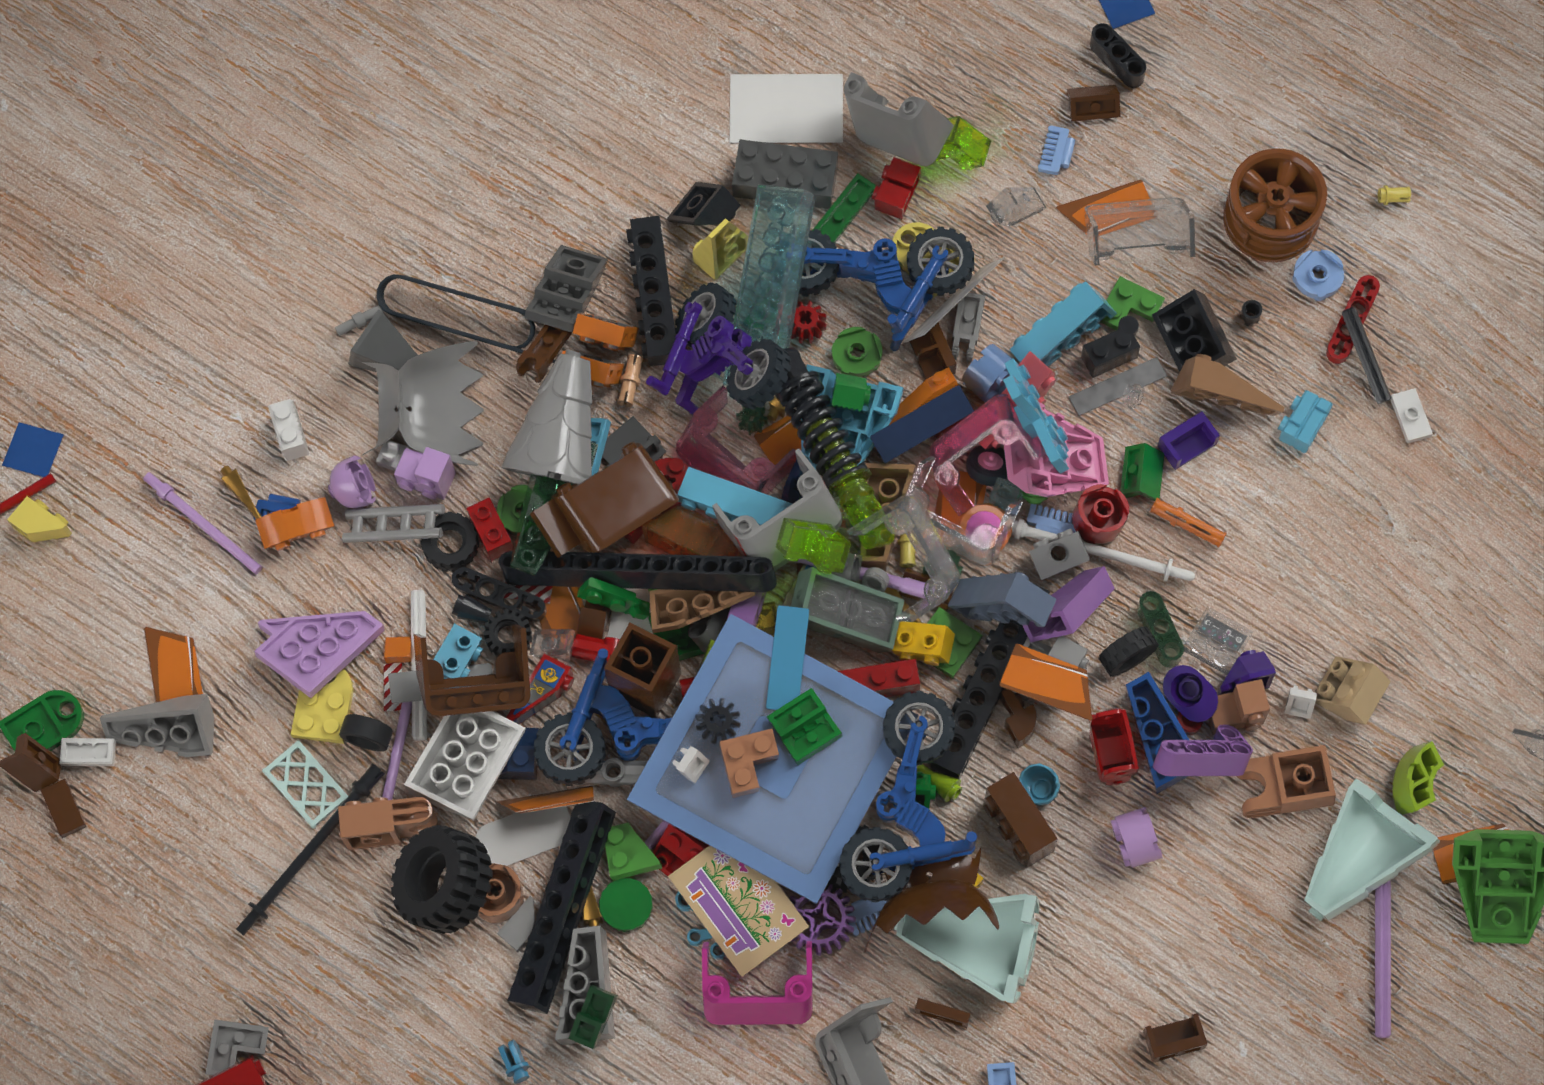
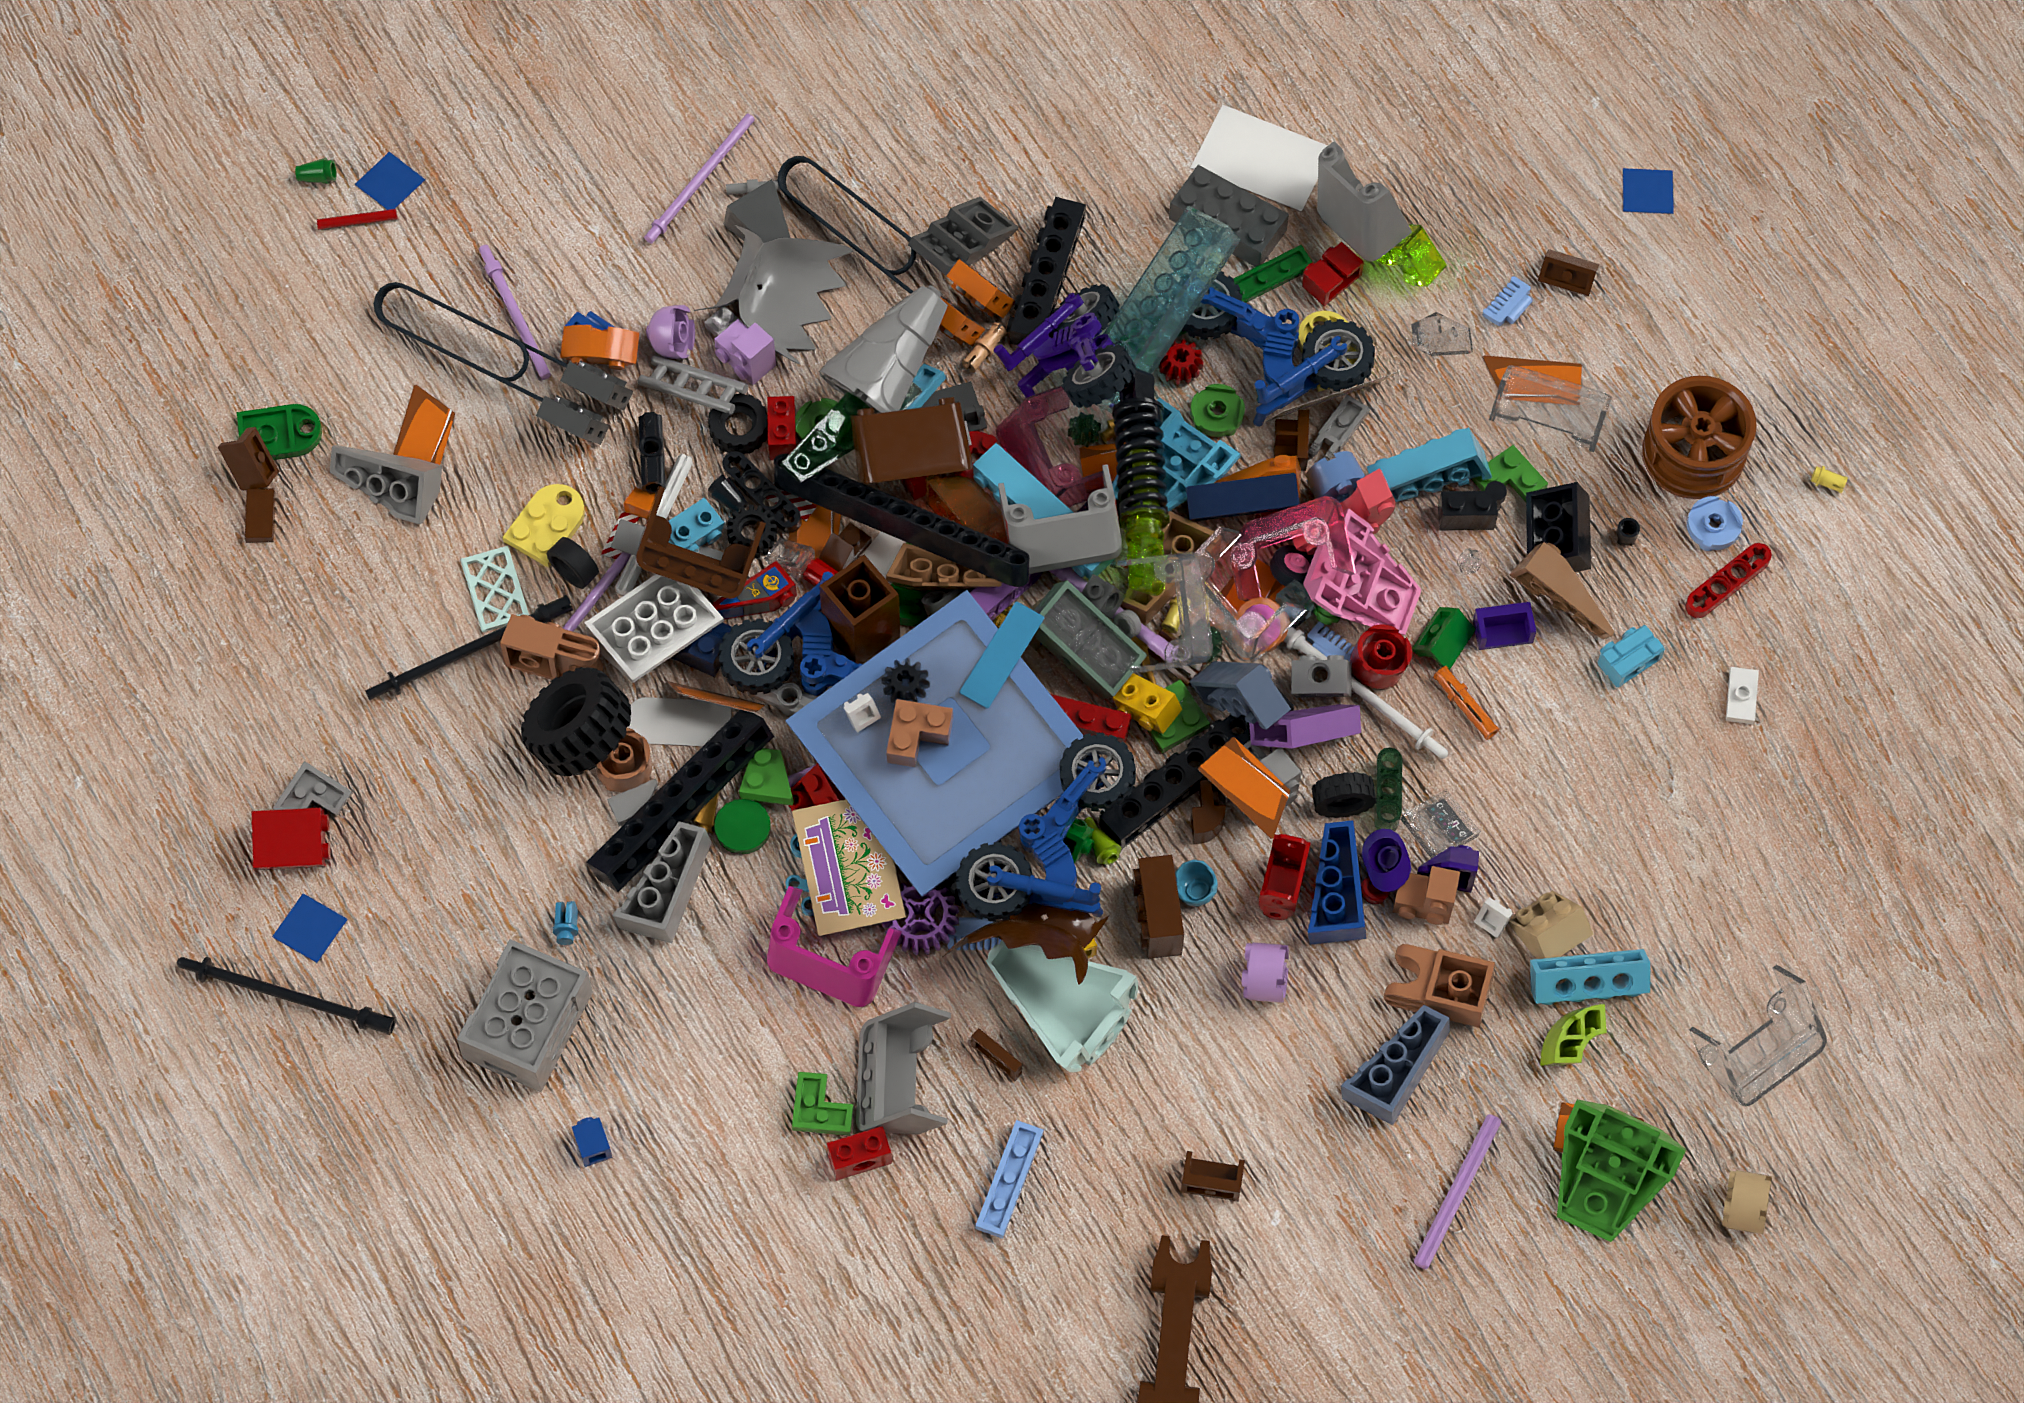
camera: 20 degrees right, 5 degrees down
(36, 523) = (360, 247): light yellow slope -> none
(87, 752) = (306, 473): white plate -> none
(235, 485) = (562, 289): pearl gold piece -> none
(288, 429) = (636, 259): white brick -> none
(289, 602) = (556, 411): none -> dark grey piece
(294, 388) = (659, 226): none -> lavender bar
(315, 647) = (565, 467): lavender wing -> none
(393, 612) = (651, 441): none -> black piece
(542, 352) = (909, 280): reddish brown plate -> none
(555, 528) = (840, 446): reddish brown tile -> none
(593, 1017) = (658, 908): dark green slope -> none
(614, 597) = (866, 536): green hinge -> none
(705, 205) = (1137, 214): black slope -> none
(720, 249) = (1127, 255): light yellow wedge -> none
(804, 726) = (987, 724): green slope -> none
(814, 542) = (1079, 556): clear neon green brick -> none
(850, 392) = (1187, 437): green brick -> none
(1033, 418) = (1348, 527): medium azure piece -> none
(1114, 387) = (1451, 547): flat silver sticker -> none
(1117, 45) = (1614, 247): black beam -> none
(1222, 756) = (1387, 929): medium lavender beam -> none
(1283, 879) = (1394, 1072): none -> sand blue wedge
(1363, 852) = (1483, 1080): light aqua cone -> none
(1366, 355) = (1723, 618): black axle -> none
(1405, 720) = (1547, 972): none -> medium azure brick

